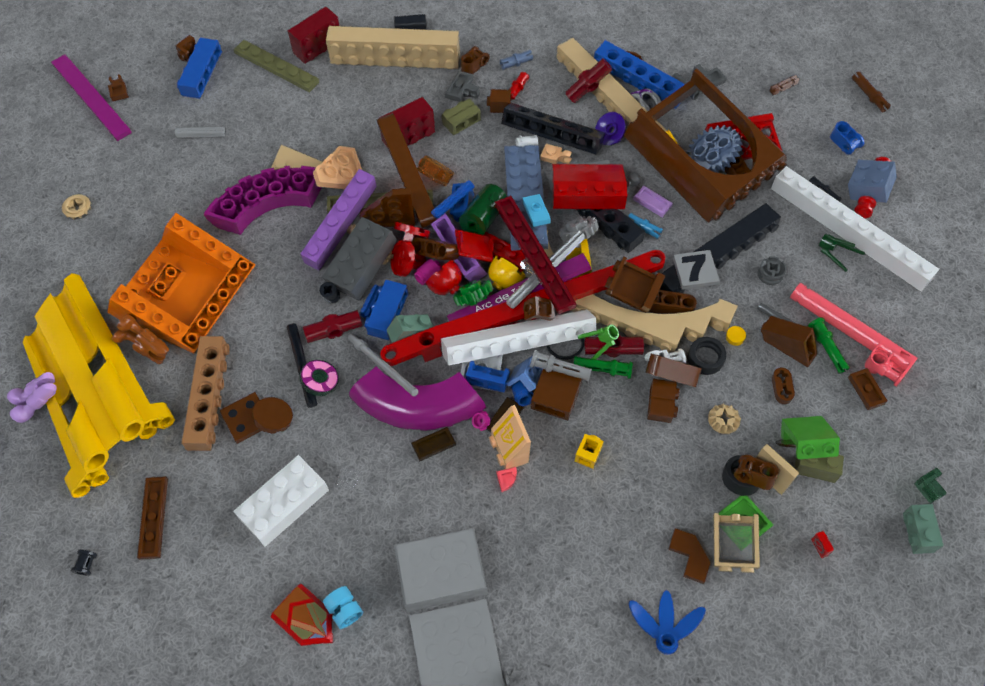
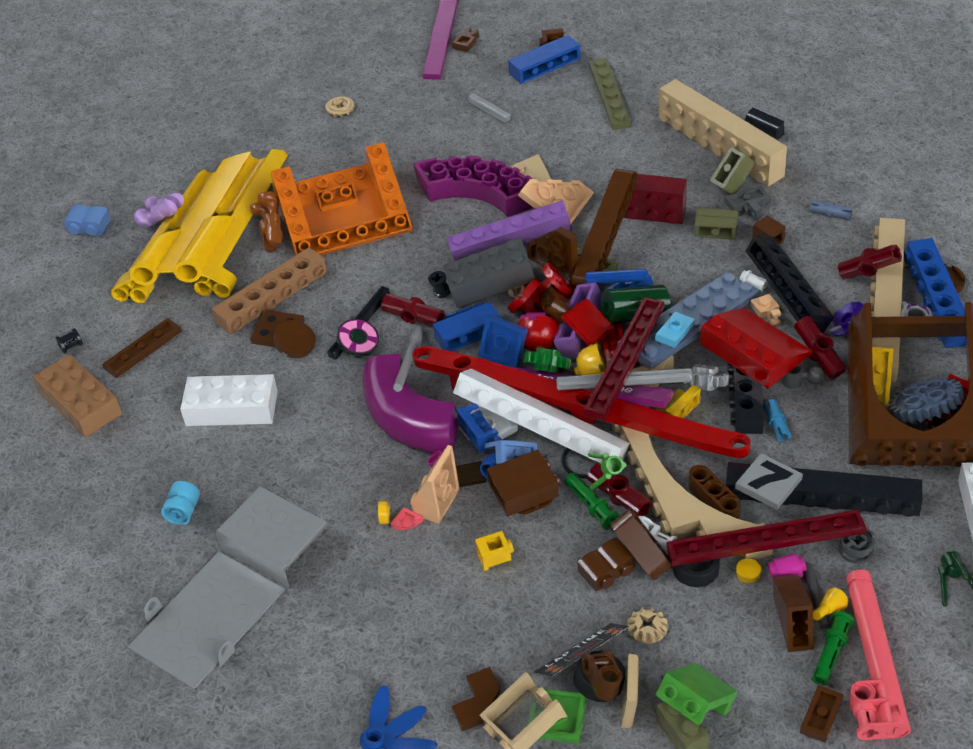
camera: 50 degrees right, 15 degrees down
(150, 599) = (77, 395): none -> medium nougat brick
(304, 618) = (150, 490): tile -> none
(310, 35) = (656, 75): dark red brick -> none
(408, 325) = (460, 342): sand green brick -> none
(429, 300) = (502, 341): none -> blue plate
(433, 444) = (383, 451): dark brown tile -> none
(435, 71) = (732, 171): none -> olive brick
(435, 170) = (634, 248): clear orange brick -> none
(474, 60) = (784, 186): reddish brown piece -> none
(490, 486) = (384, 512): none -> yellow tile
(518, 84) = (804, 231): red axle -> none
(538, 308) = (574, 403): reddish brown bracket -> none
(584, 373) = (551, 478): light grey pin -> none
(620, 156) = (821, 347): none -> dark red piece
(633, 285) = (686, 446): reddish brown panel -> none
(652, 201) = (814, 407): lavender tile -> none
(714, 468) = (578, 650): none -> black sticker
(732, 309) = (765, 537): none -> dark red tile
(756, 316) = (787, 565): none -> dark pink brick
(787, 385) = (743, 648): reddish brown beam -> none
(801, 316) = (833, 601): none -> yellow cone

